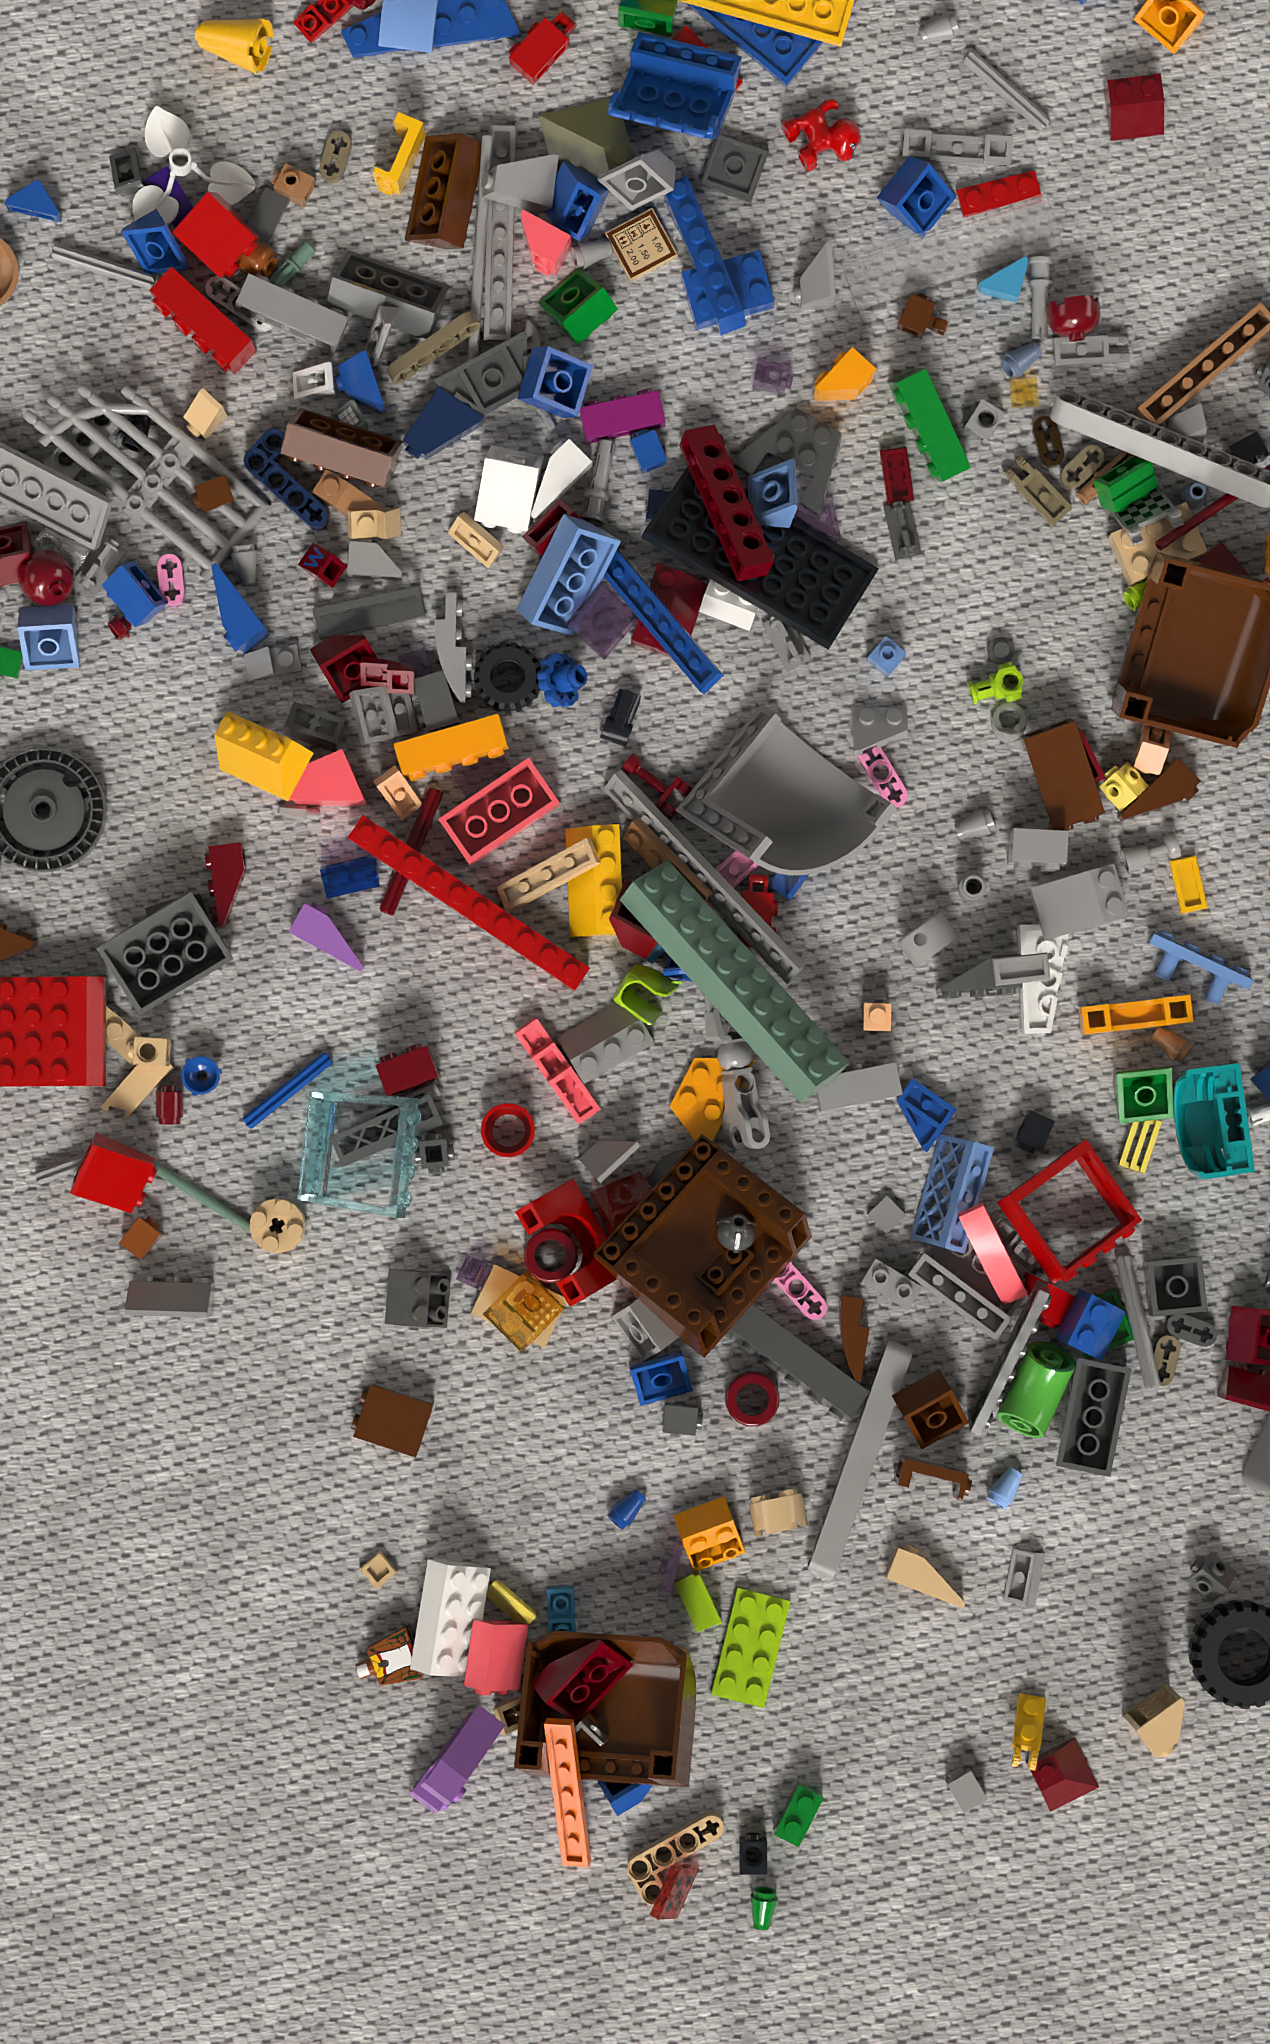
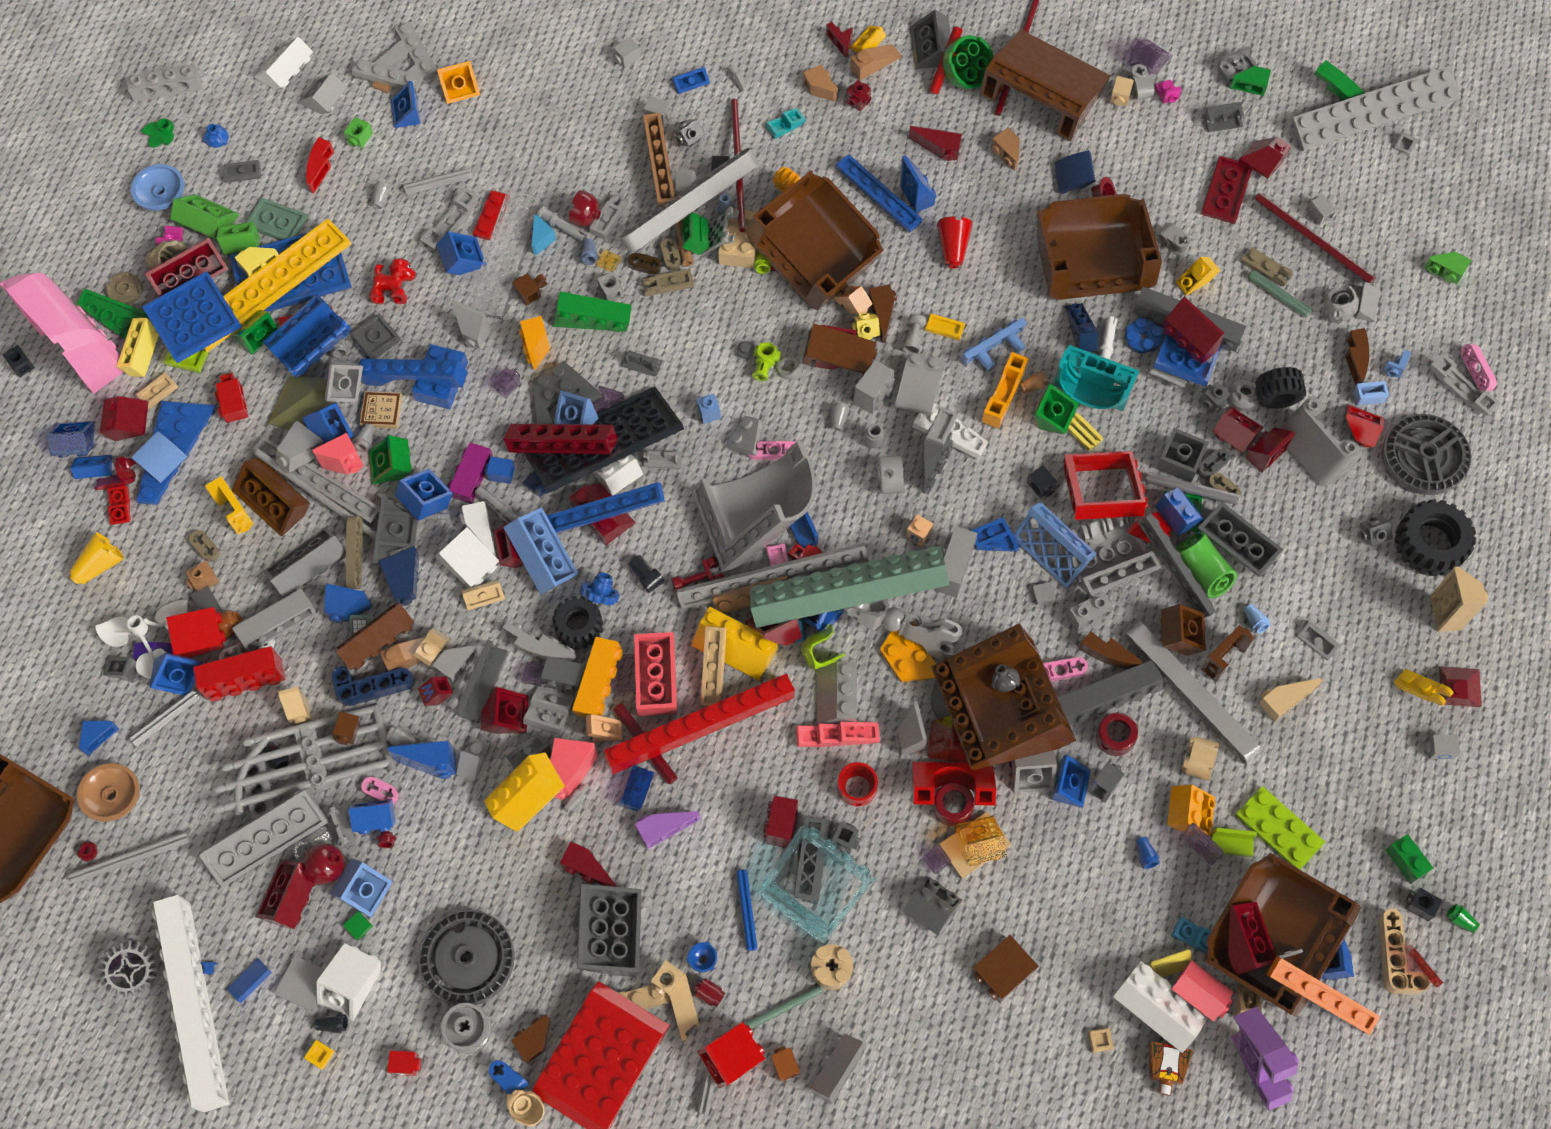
camera: 55 degrees left, 20 degrees down
(292, 264) = (247, 606): sand green axle -> none
(315, 382) = (324, 632): white slope -> none
(380, 333) = (321, 572): light grey slope -> none
(387, 673) = (527, 689): dark red slope -> none
(602, 621) = (581, 550): clear purple plate -> none
(896, 475) = (608, 348): dark red plate -> none
(992, 1254) = (1106, 537): coral slope -> none
(1134, 107) = (493, 124): dark red slope -> none

